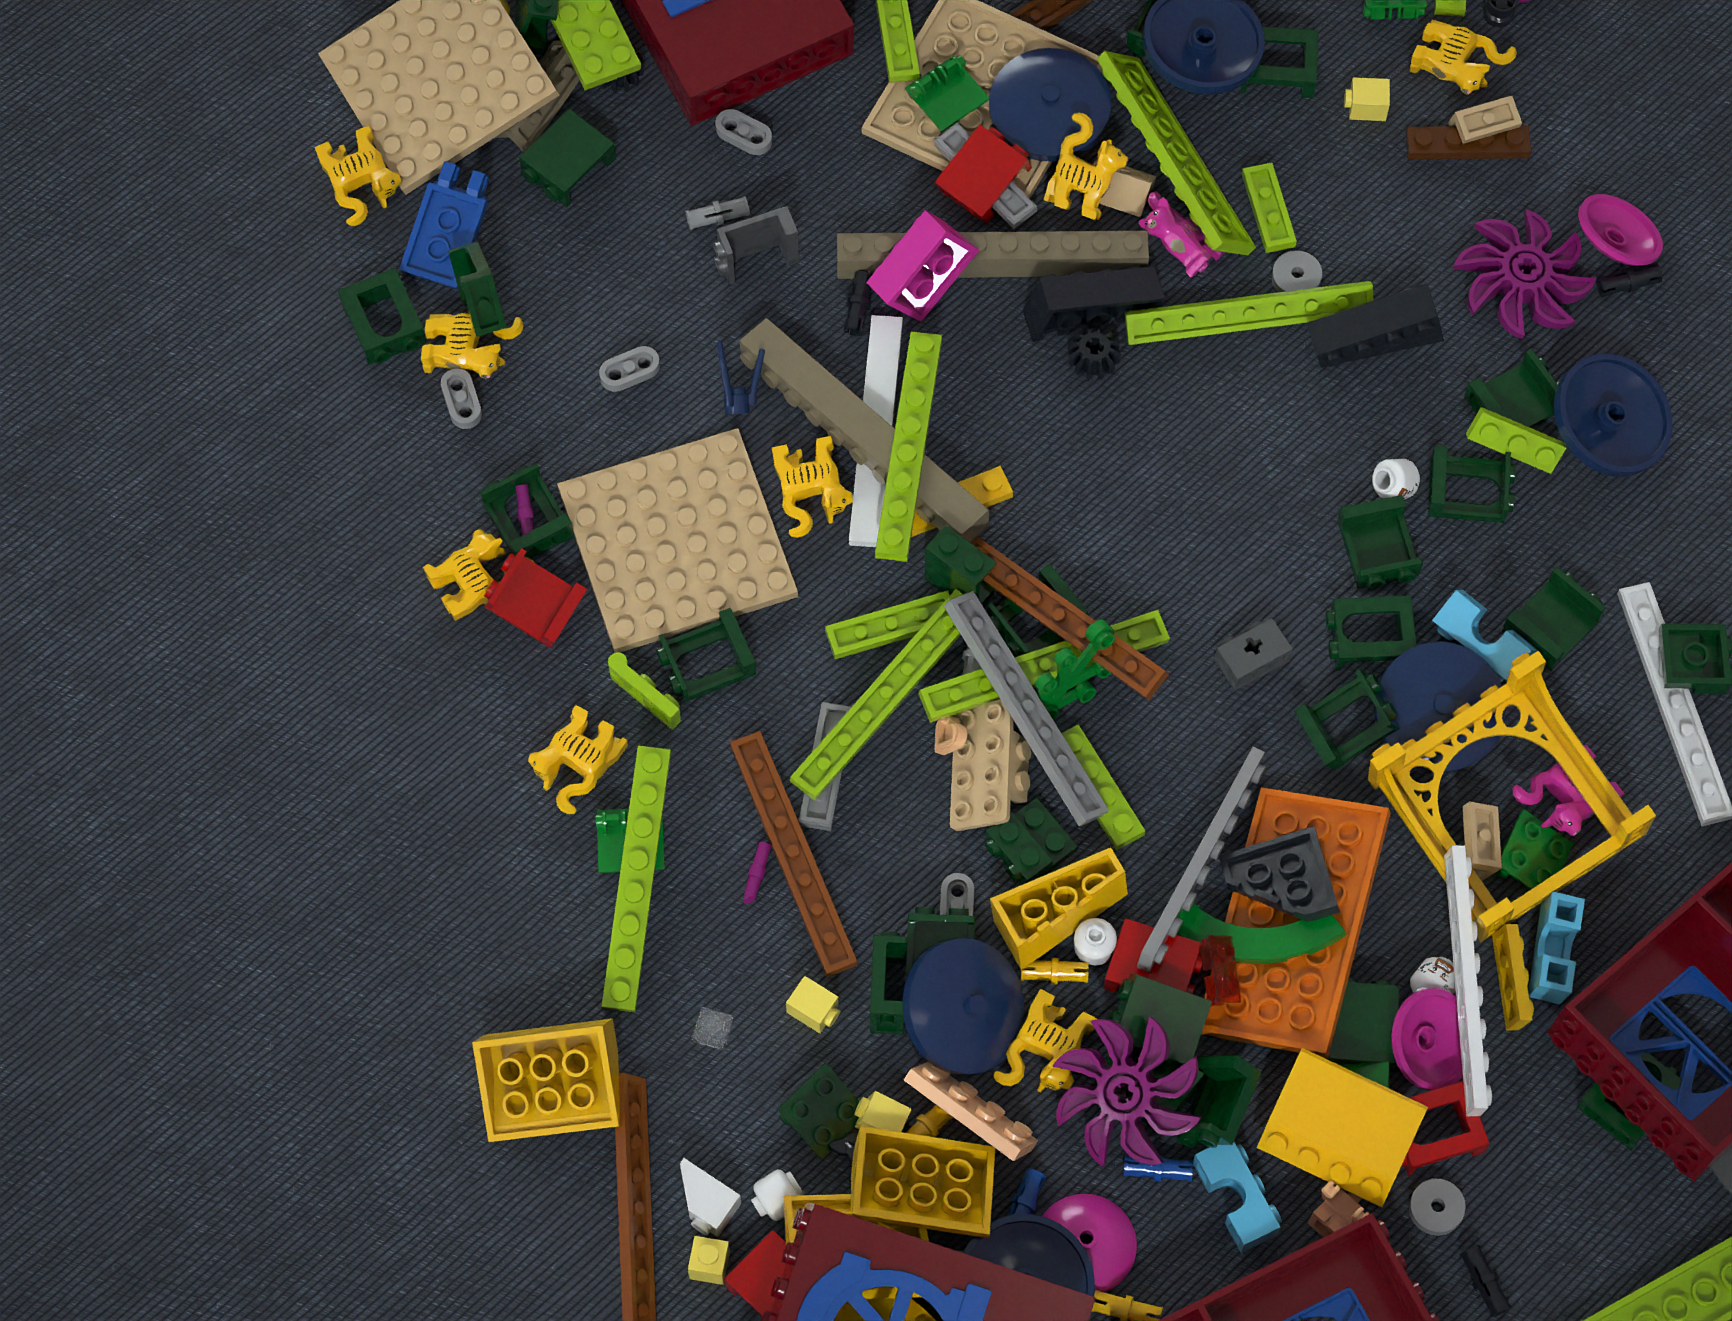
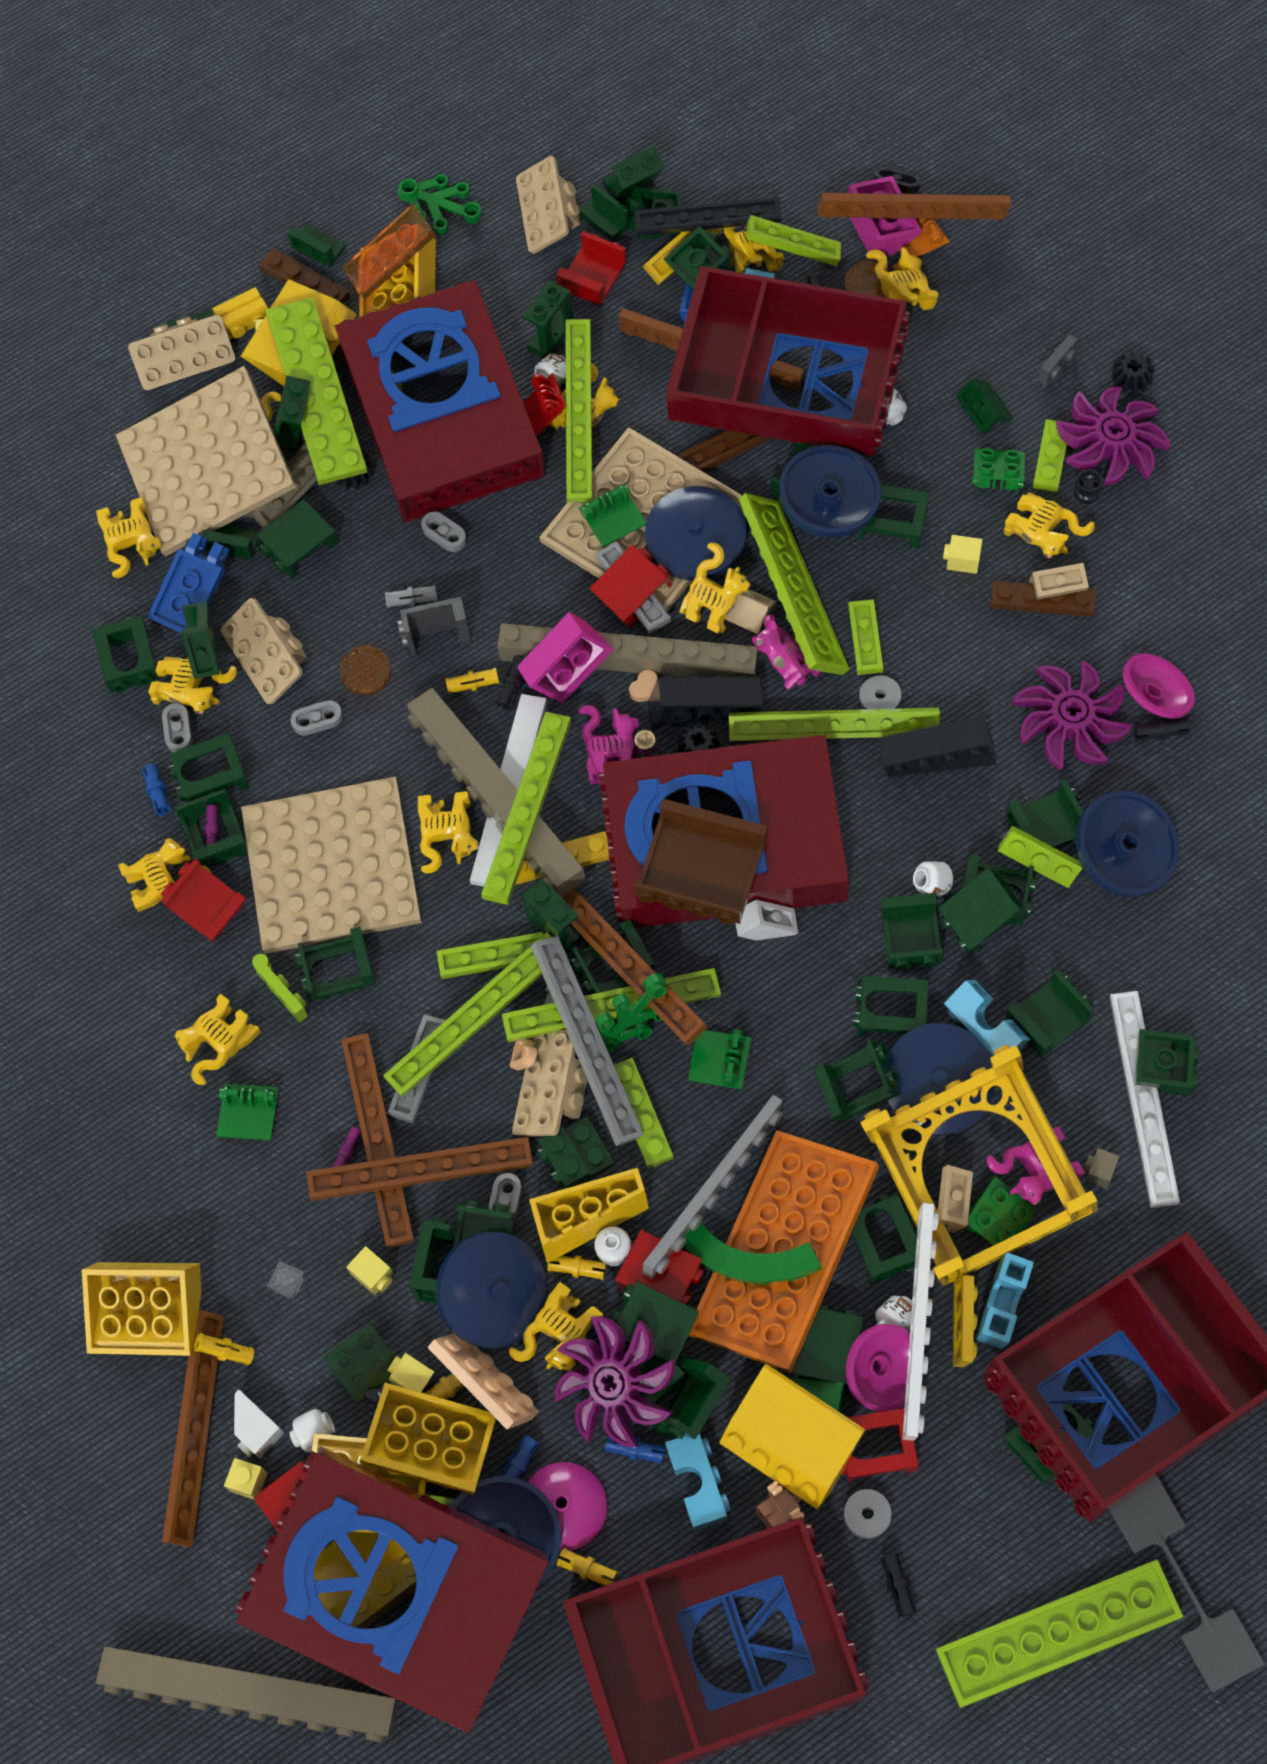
camera: 15 degrees right, 0 degrees up
(449, 473) = (156, 789): none -> blue pin
(496, 165) = (239, 541): none -> dark green panel
(496, 469) = (192, 790): none -> dark green panel
(551, 294) = (264, 649): none -> tan bracket
(636, 879) = (243, 1146): lime plate -> none
(656, 1115) = (224, 1349): none -> yellow pin
(677, 306) = (365, 670): none -> clear orange tile
(735, 398) = (396, 751): dark blue plant -> none
(828, 299) = (454, 683): none -> yellow pin
(851, 880) = (419, 1169): none -> dark orange plate
(990, 368) = (607, 747): none -> dark pink animal
(1017, 291) = (642, 688): none -> light nougat tile
(1032, 356) = (645, 743): none -> tan piece
(1131, 485) = (702, 862): none -> reddish brown panel
(1181, 714) = (720, 1059): none -> green hinge
(1207, 549) = (767, 921): none -> white slope
(1219, 956) = (714, 1279): clear red hinge -> none
(1223, 466) = (772, 783): none -> dark red panel
(1243, 667) = (780, 1025): dark grey brick -> none
(1284, 874) = (779, 1209): black plate -> none
(1403, 930) = (877, 1269): none -> dark green panel
(1458, 508) = (981, 909): none -> dark green panel
(1640, 786) = (1101, 1168): none -> dark tan plate

